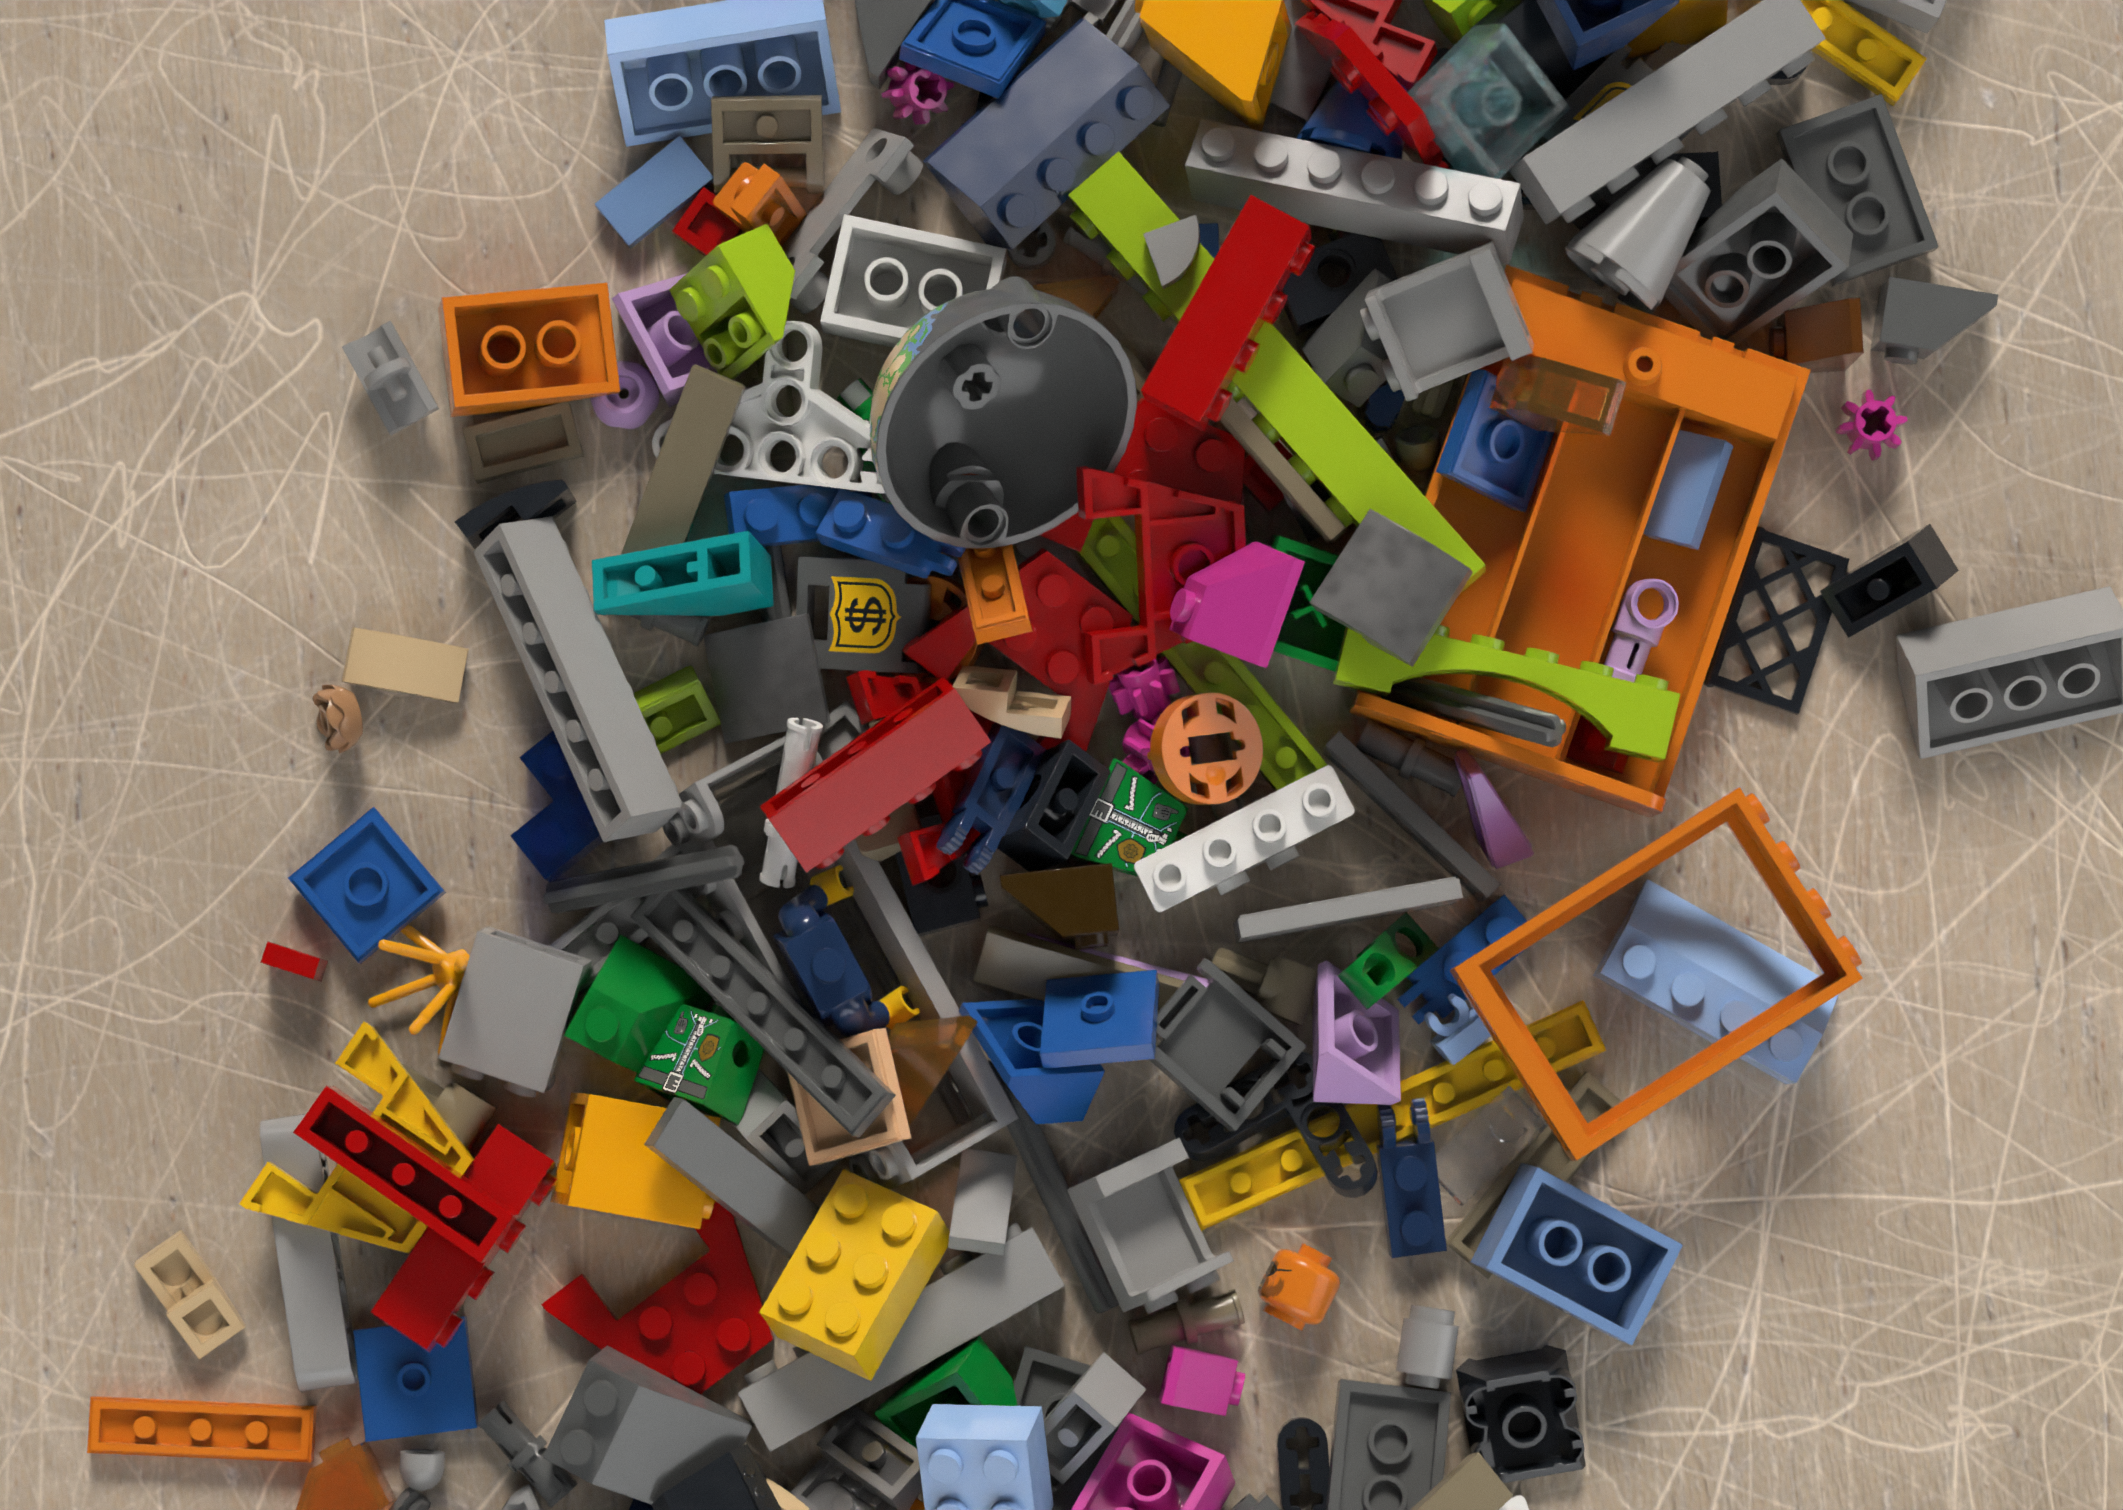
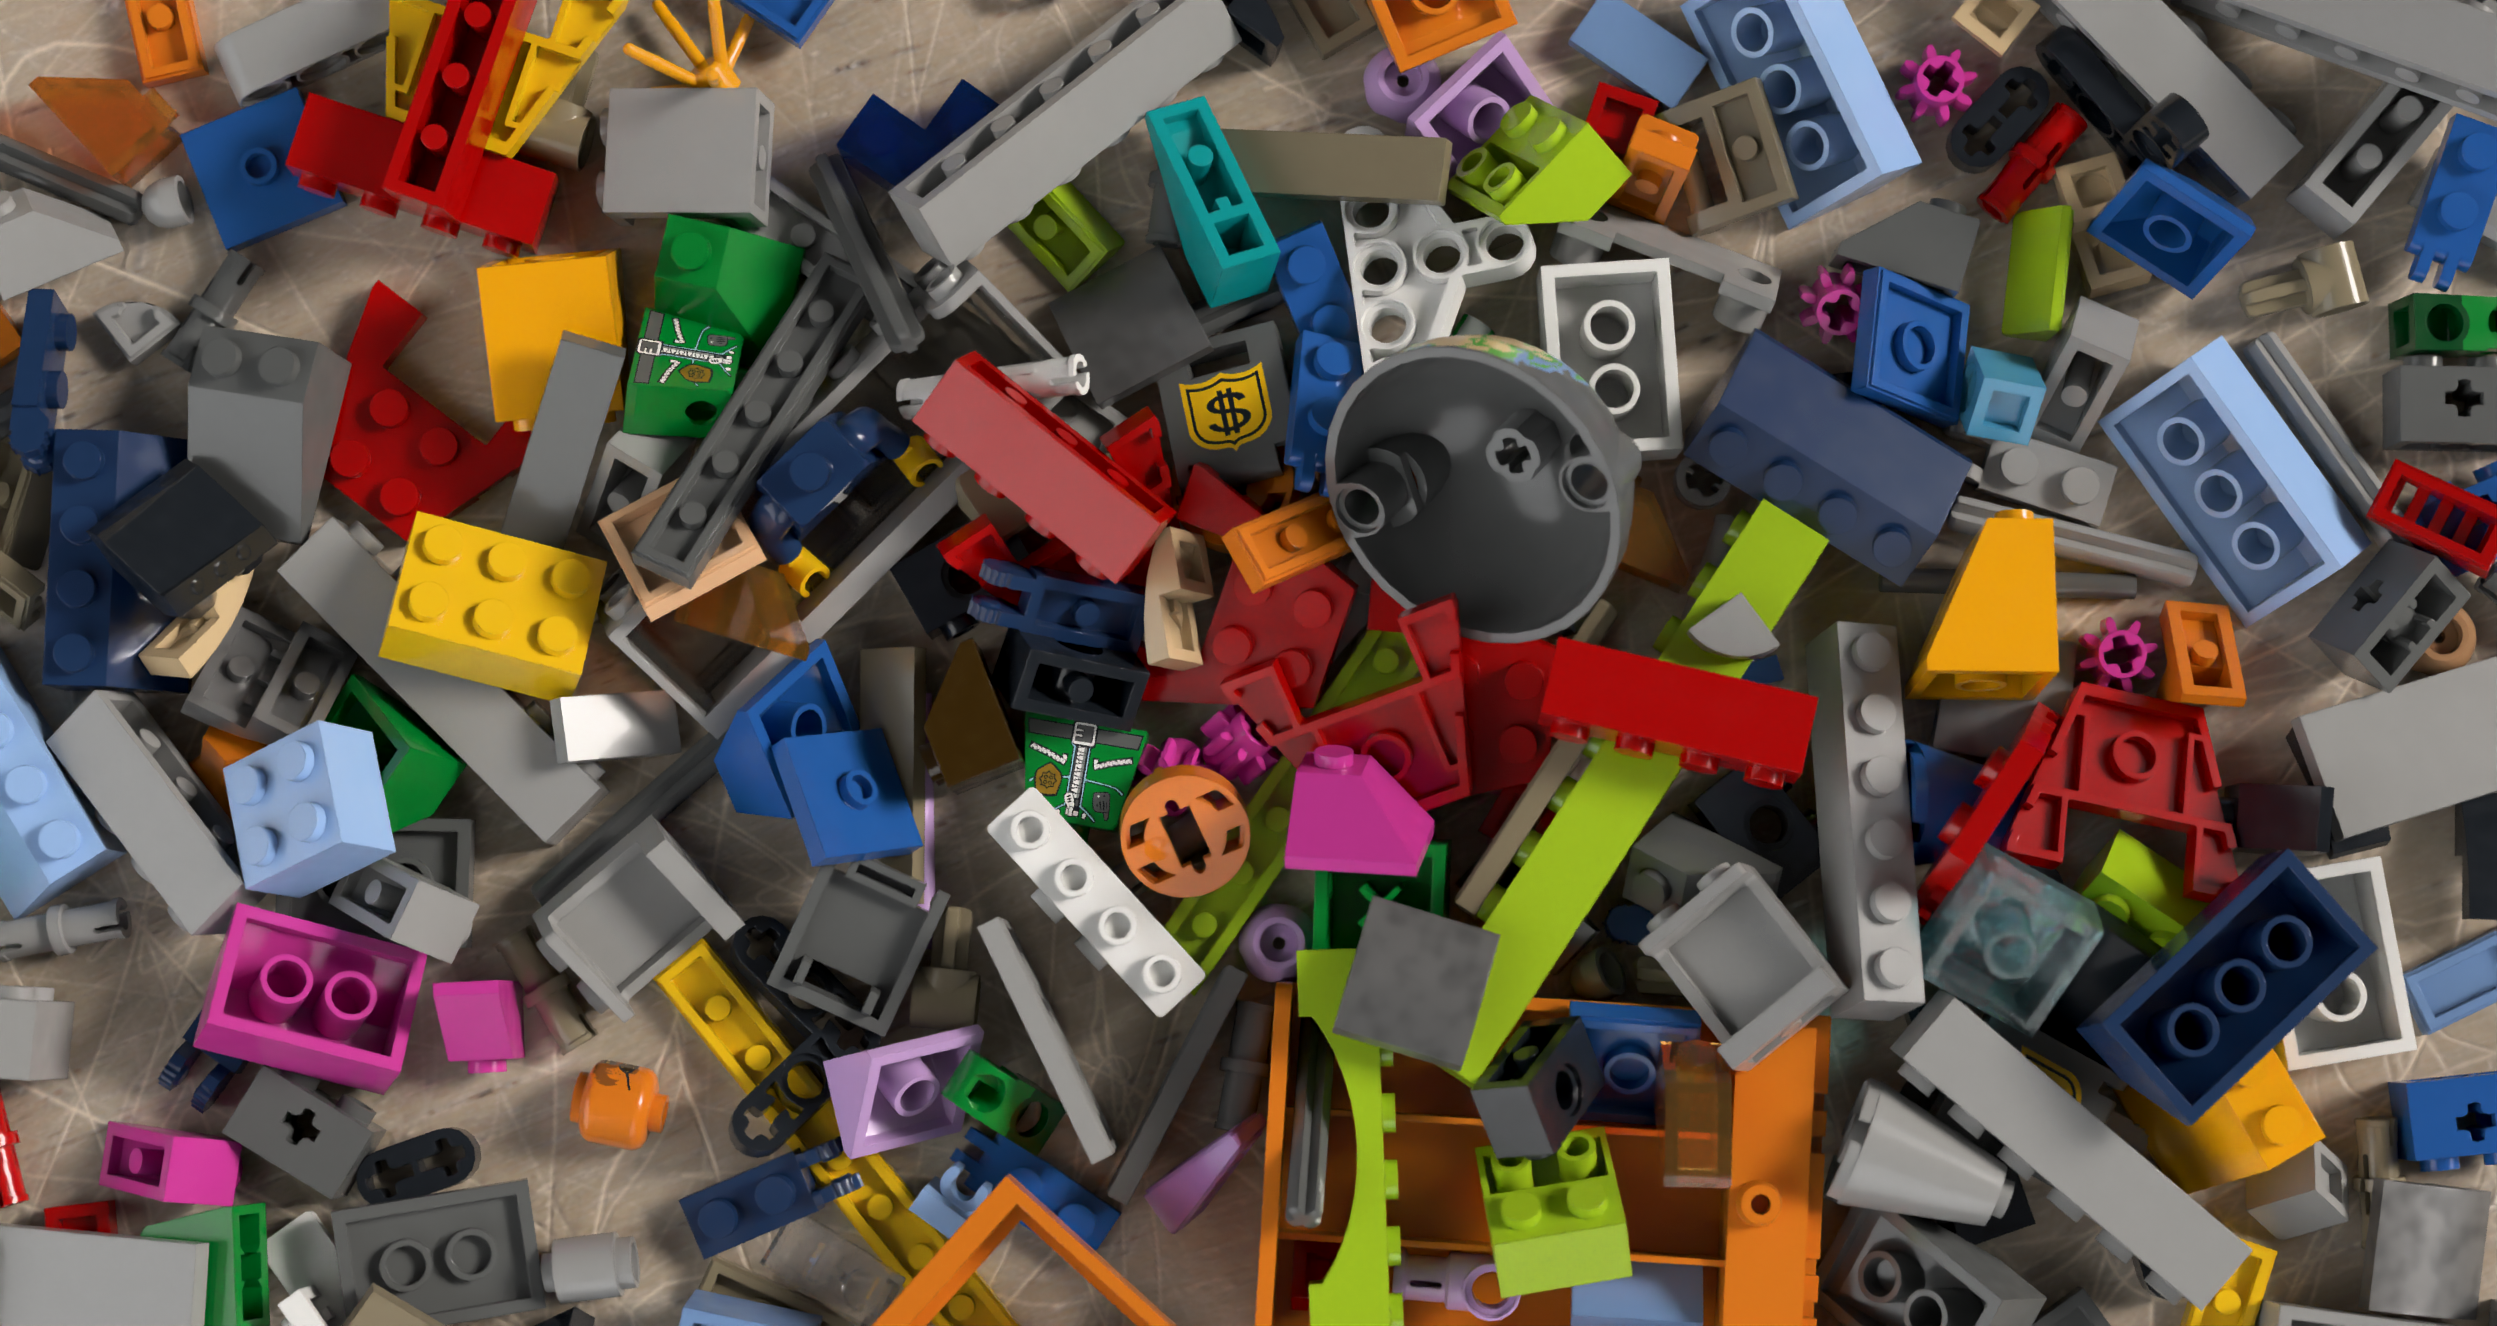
camera: 80 degrees right, 0 degrees up
(1314, 720) = (1258, 935): none -> lavender plate
(1500, 515) = (1538, 1087): none -> black brick
(1604, 532) = (1555, 1216): none -> lime slope

